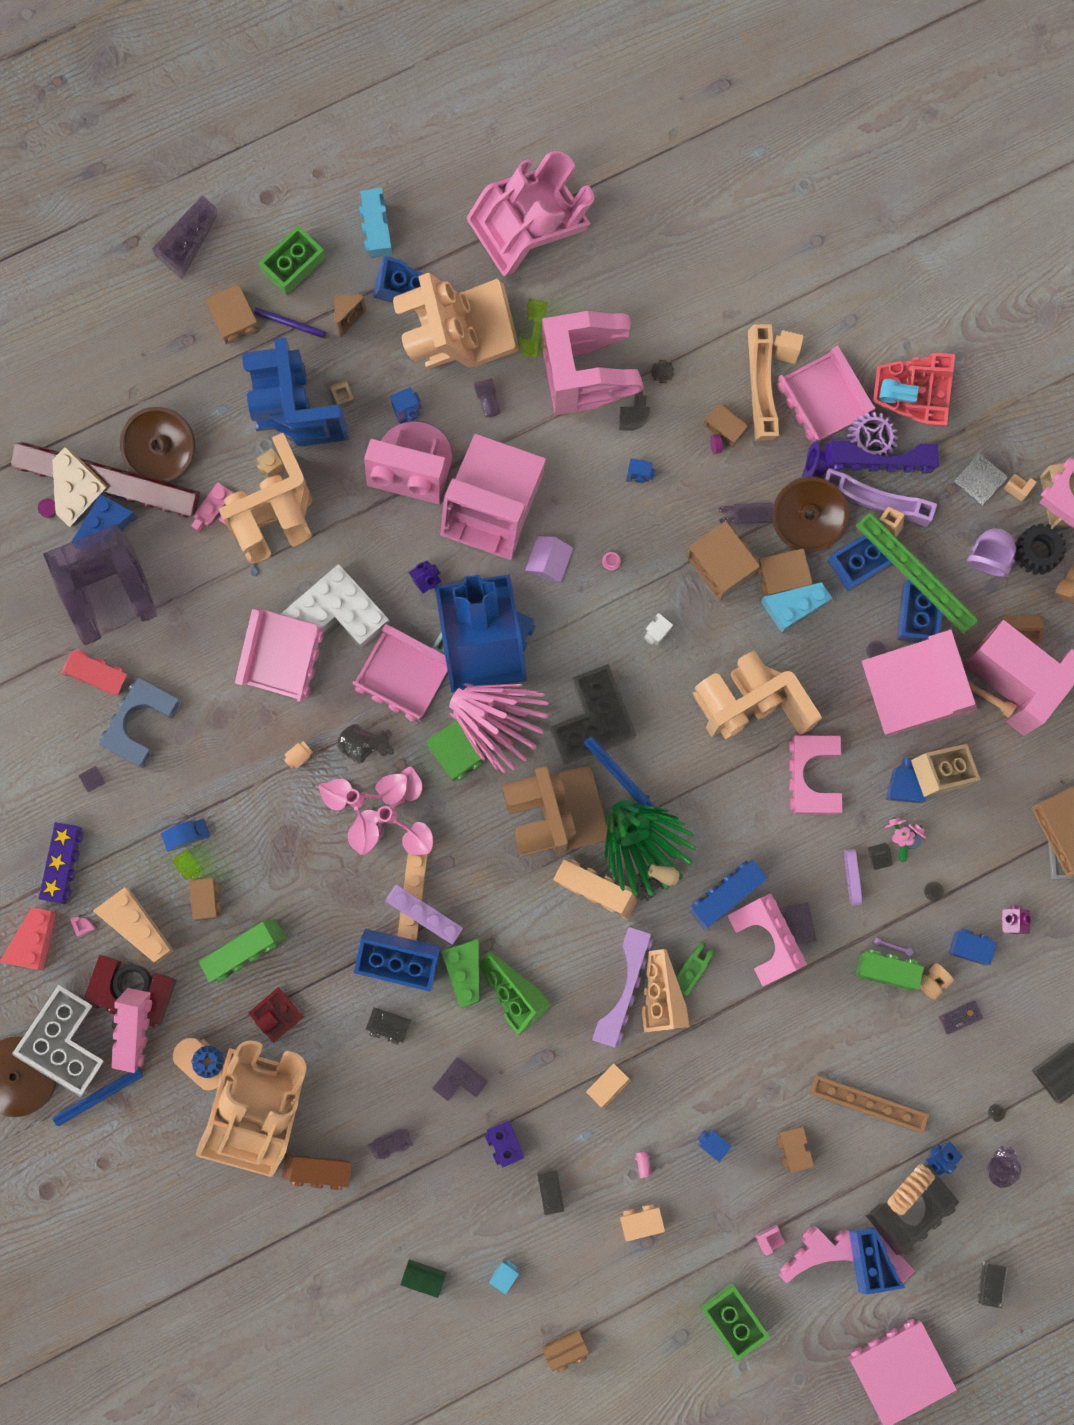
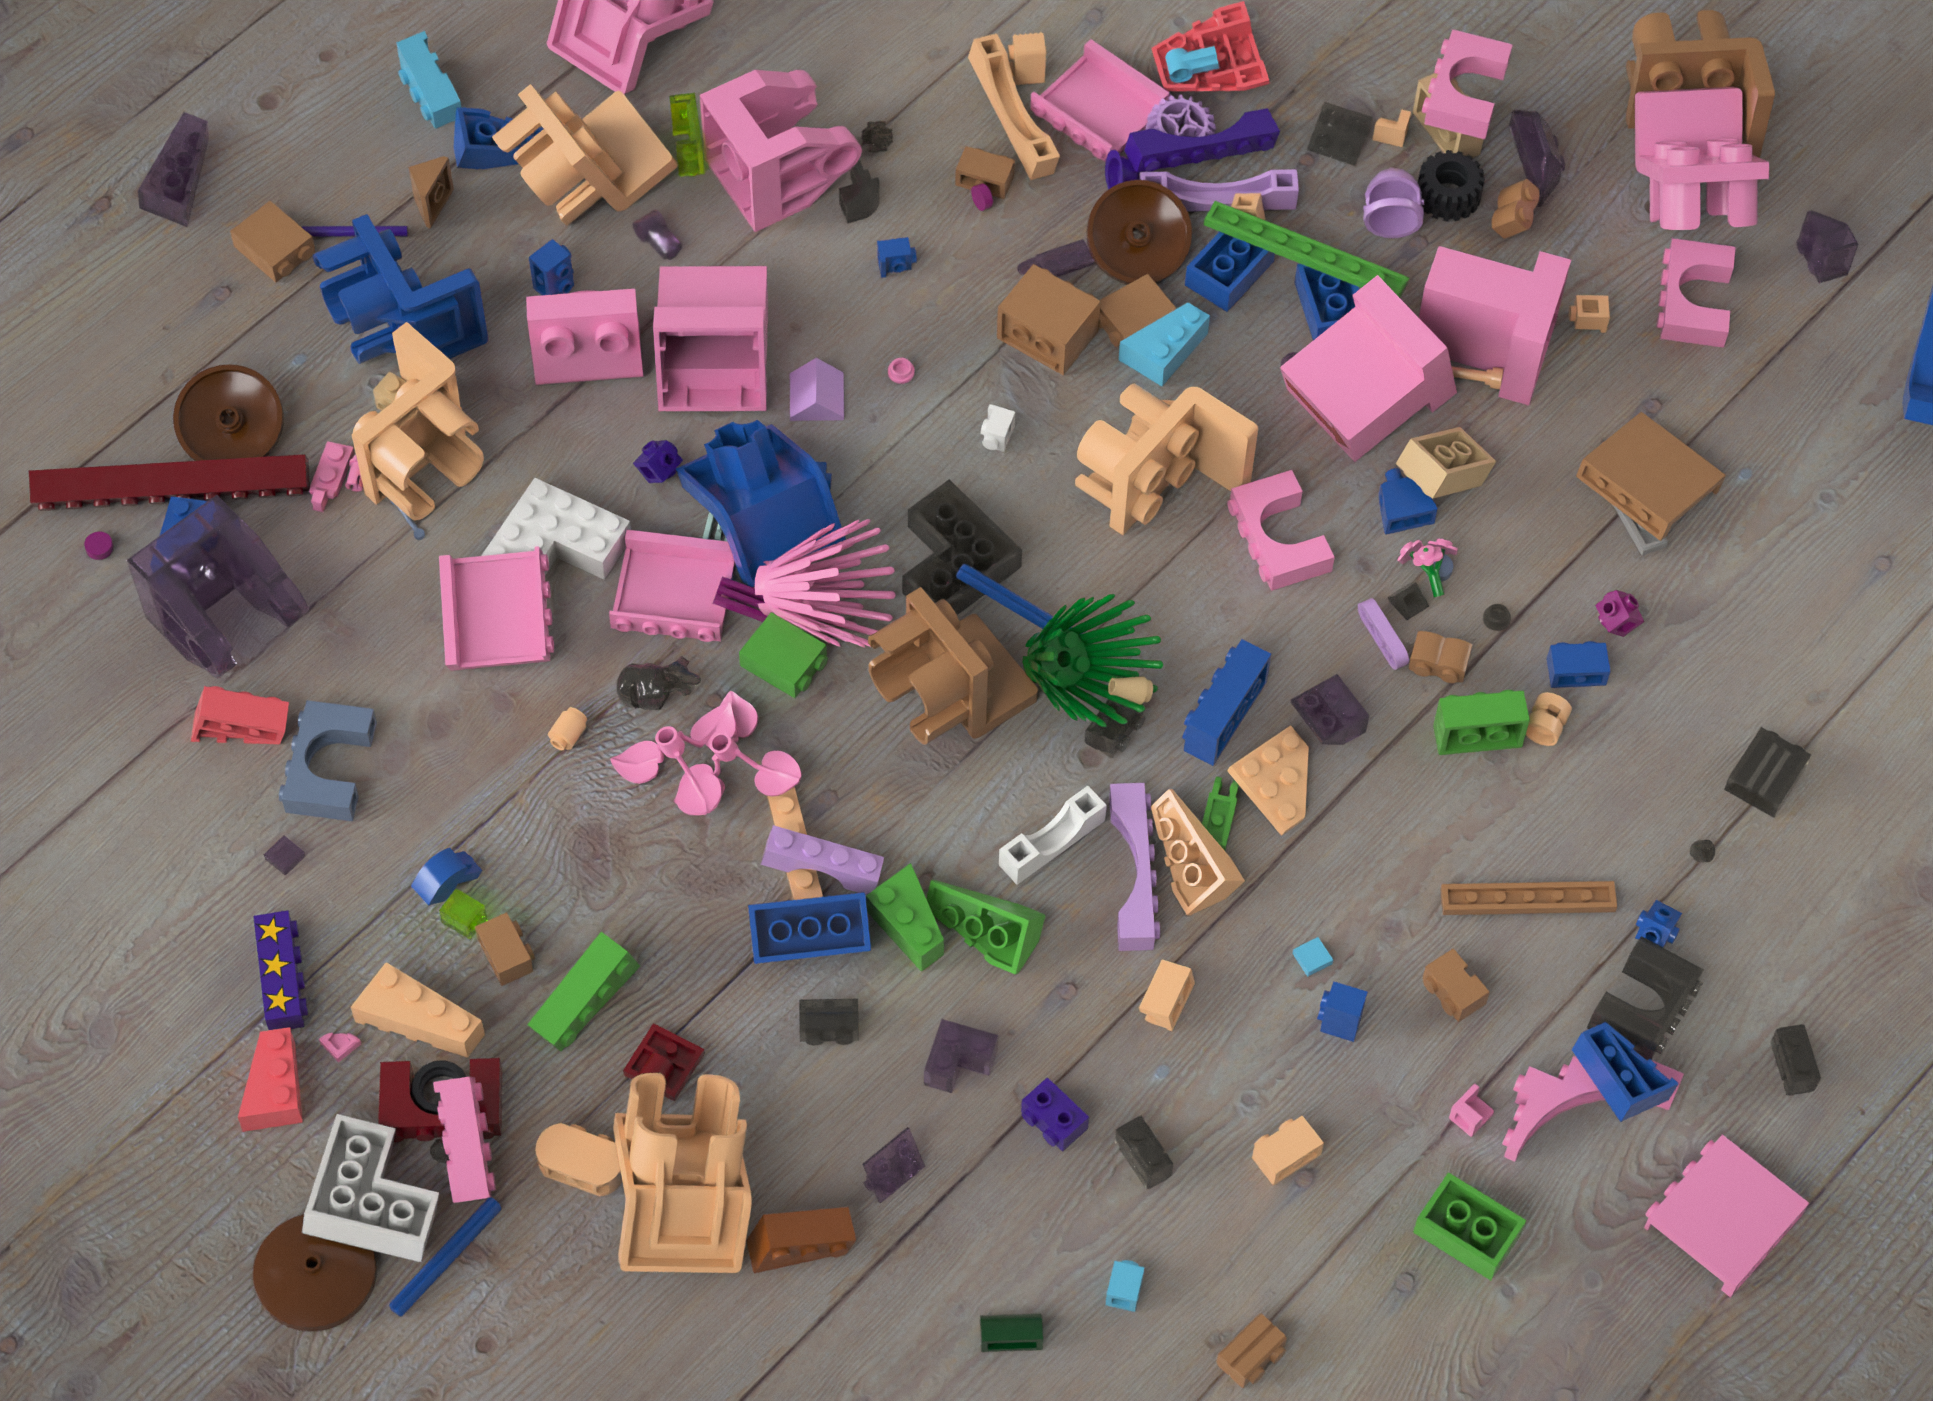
camera: 20 degrees left, 20 degrees down
(74, 486) = (130, 499): tan plate -> none
(214, 1068) = (581, 1153): blue gear -> none
(292, 260) = (332, 155): bright green brick -> none
(431, 690) = (743, 595): none -> magenta tile
(578, 948) = (1074, 821): none -> white arch
(595, 888) = (1047, 755): light nougat wedge -> none
(643, 1164) = (1257, 1076): bright pink pin -> none
(712, 1092) = (1312, 956): none -> medium azure tile
(738, 956) = (1276, 778): none -> light nougat plate
(787, 953) = (1339, 742): bright pink arch -> none
(883, 909) = (1440, 657): none -> medium nougat brick
(911, 1189) = (1630, 959): light nougat gear -> none
(960, 1017) = (1601, 755): clear purple tile -> none
(1004, 1168) = (1743, 909): clear purple hair -> none

